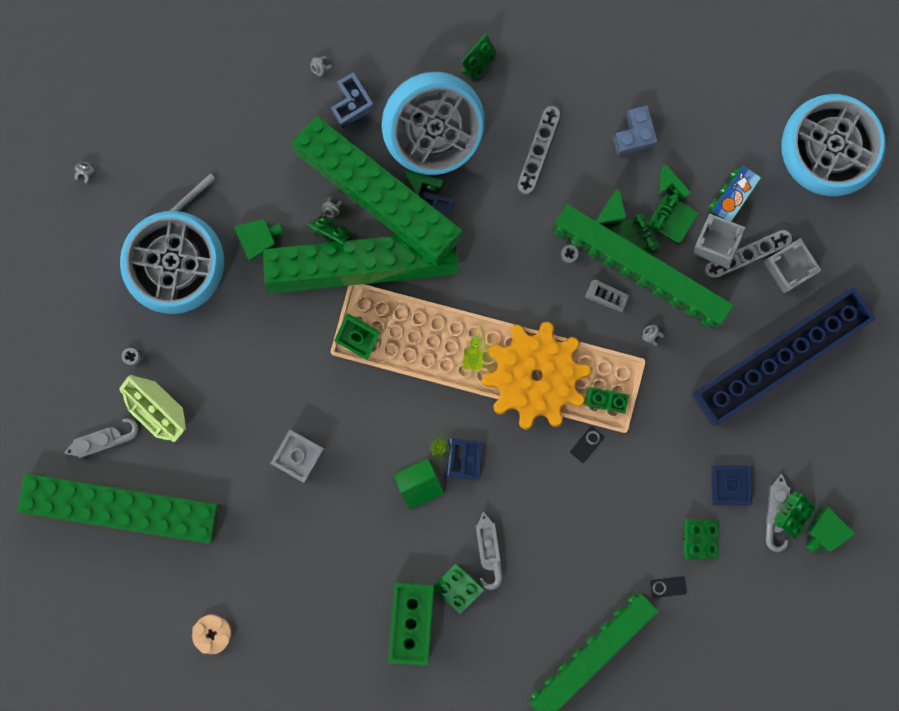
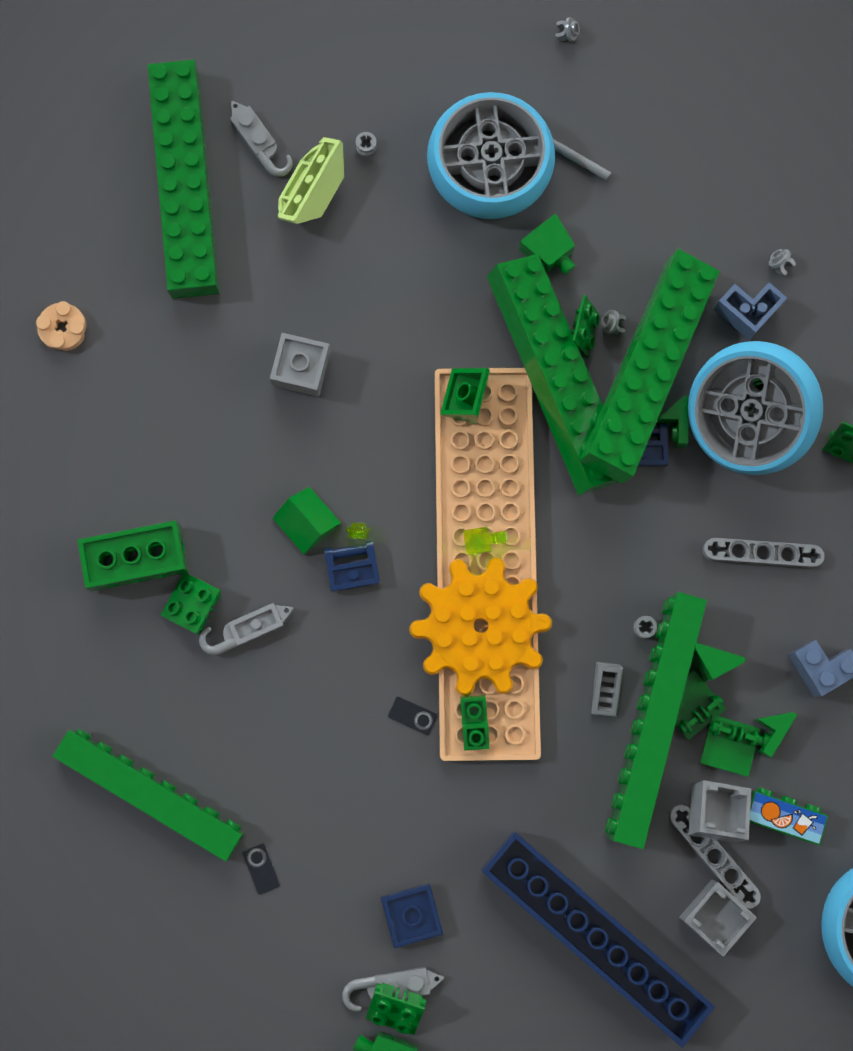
camera: 75 degrees right, 5 degrees down
(651, 333) = (575, 756): light grey plate -> none
(700, 539) = (332, 894): green hinge -> none

